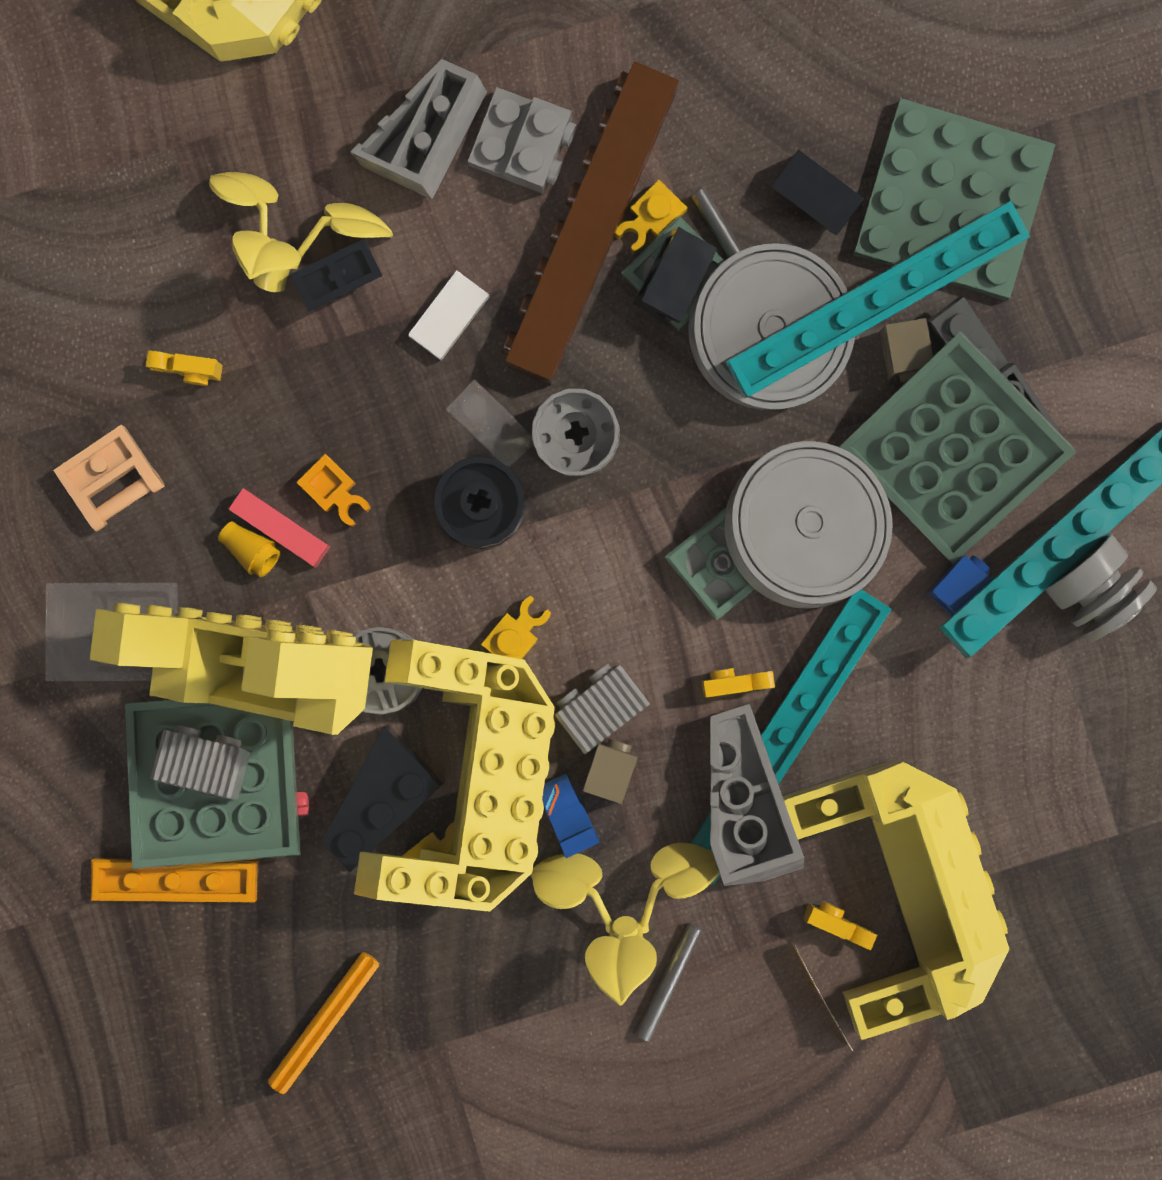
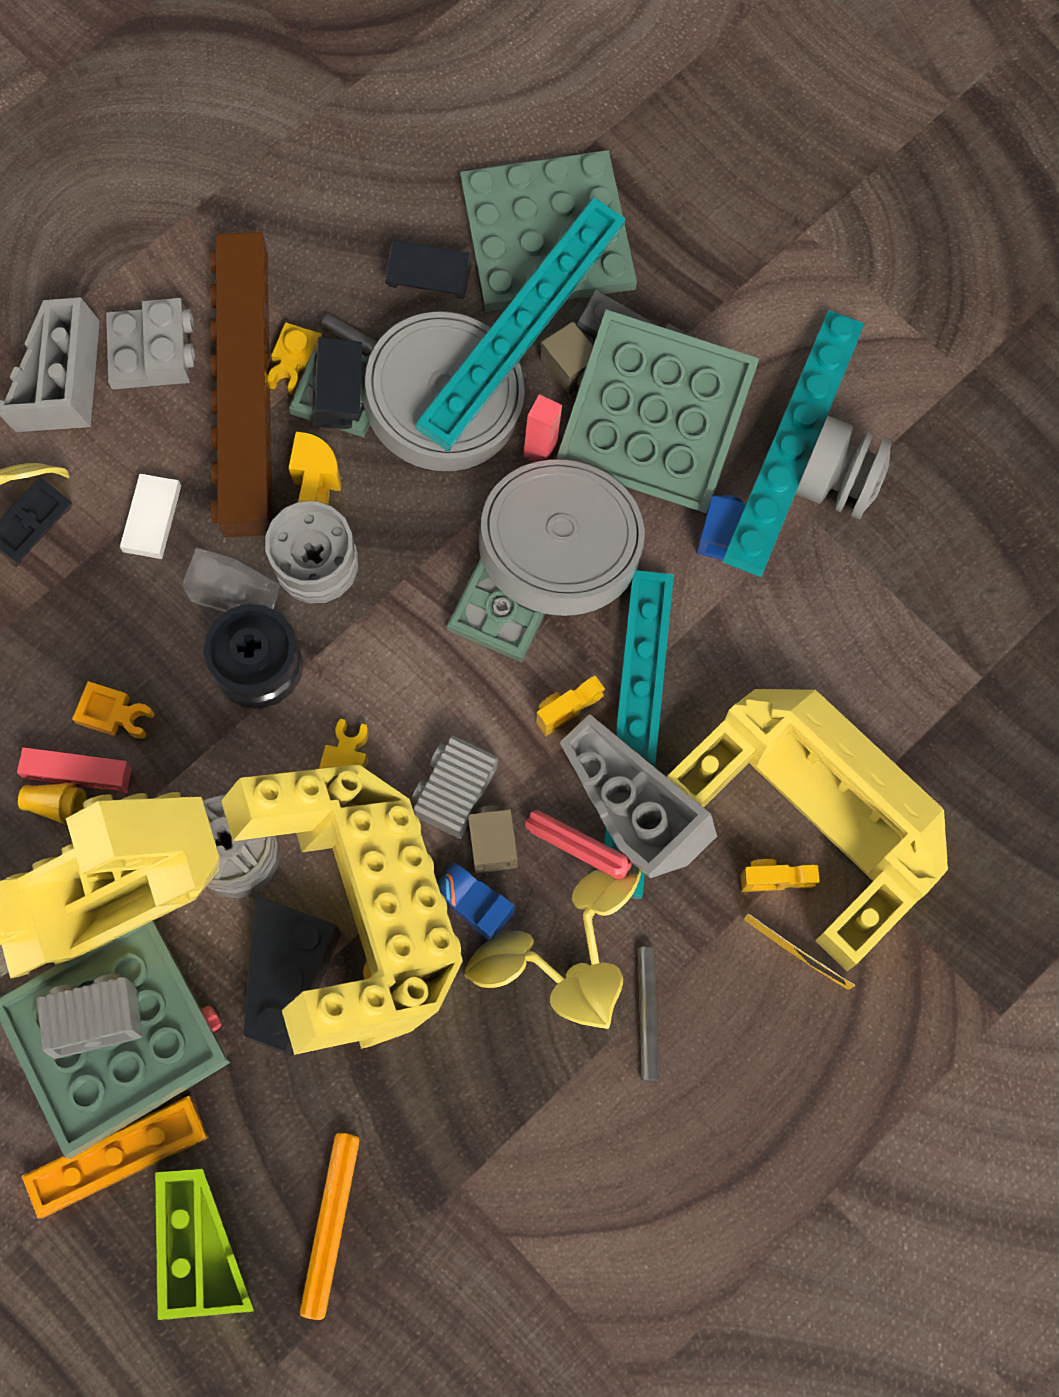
camera: 25 degrees left, 15 degrees down
(203, 995) = (193, 1252): none -> lime wedge
(620, 345) = (314, 468): none -> yellow brick
(680, 816) = (578, 844): none -> coral axle
(840, 419) = (542, 429): none -> coral piece

